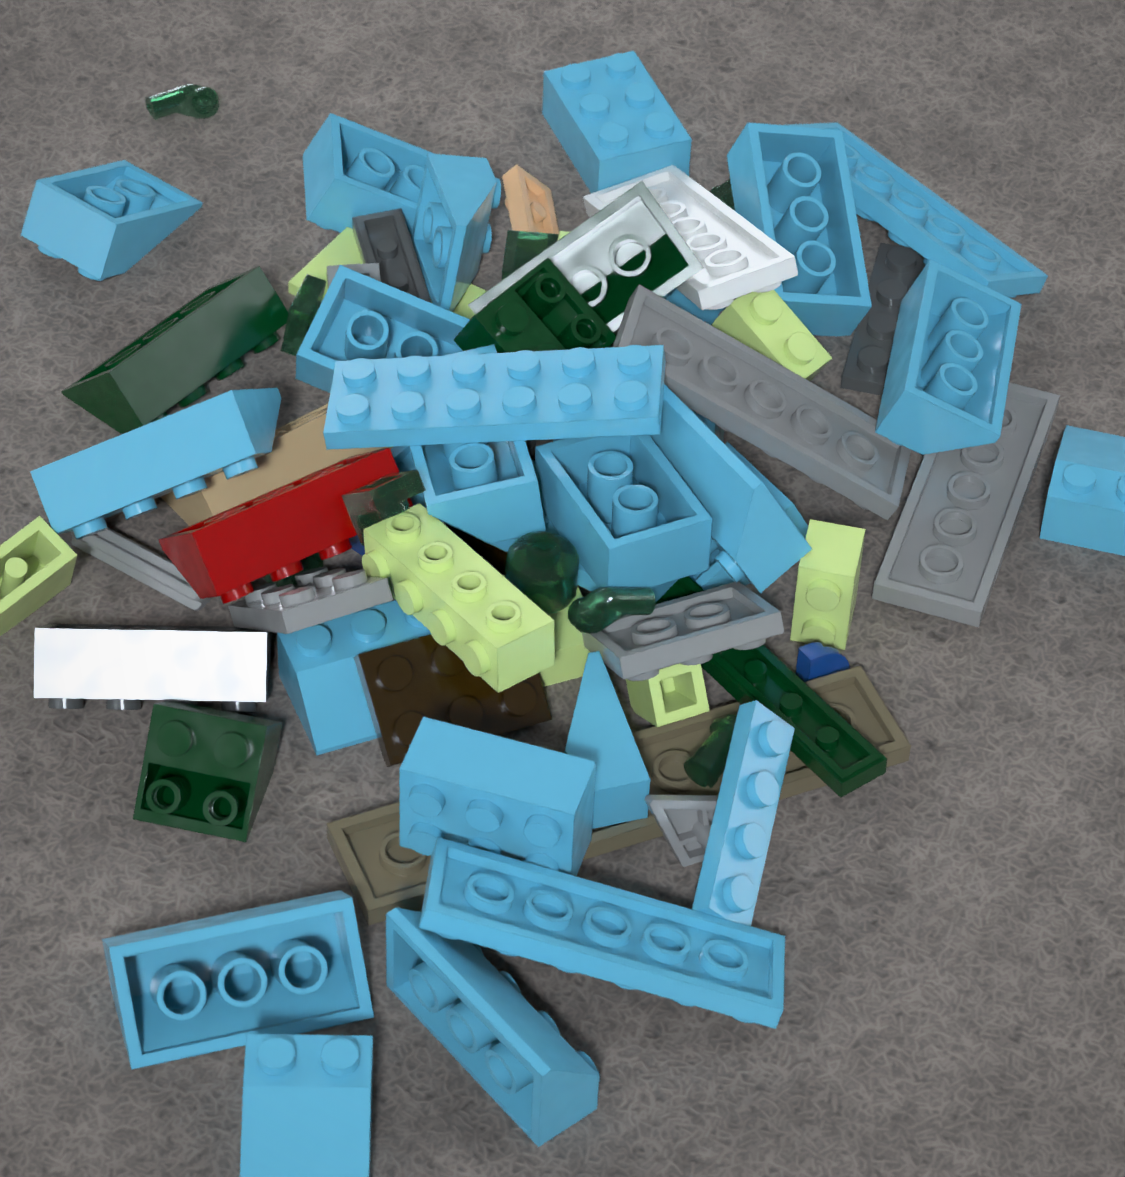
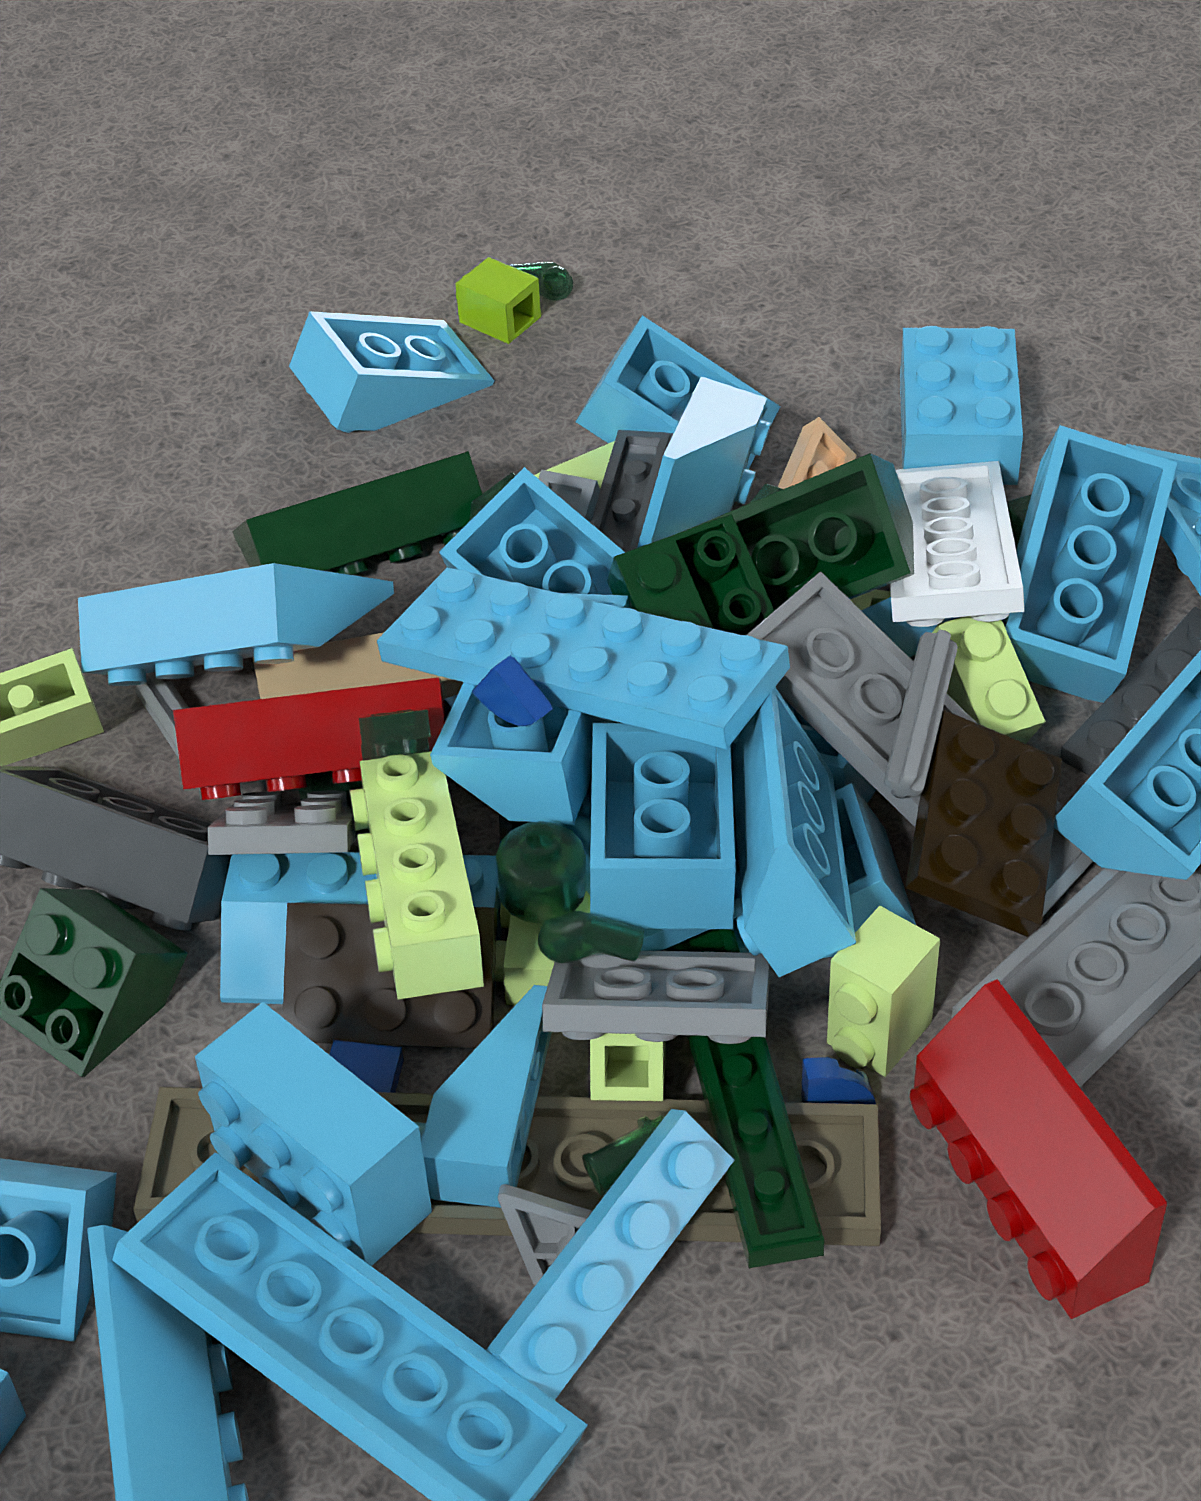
camera: 30 degrees right, 0 degrees up
(166, 129) = (498, 300): none -> lime brick
(471, 441) = (512, 694): none -> blue tile
(761, 373) = (921, 714): none -> light grey axle
(836, 443) = (986, 825): none -> dark brown plate
(991, 655) = (1038, 1154): none -> red slope

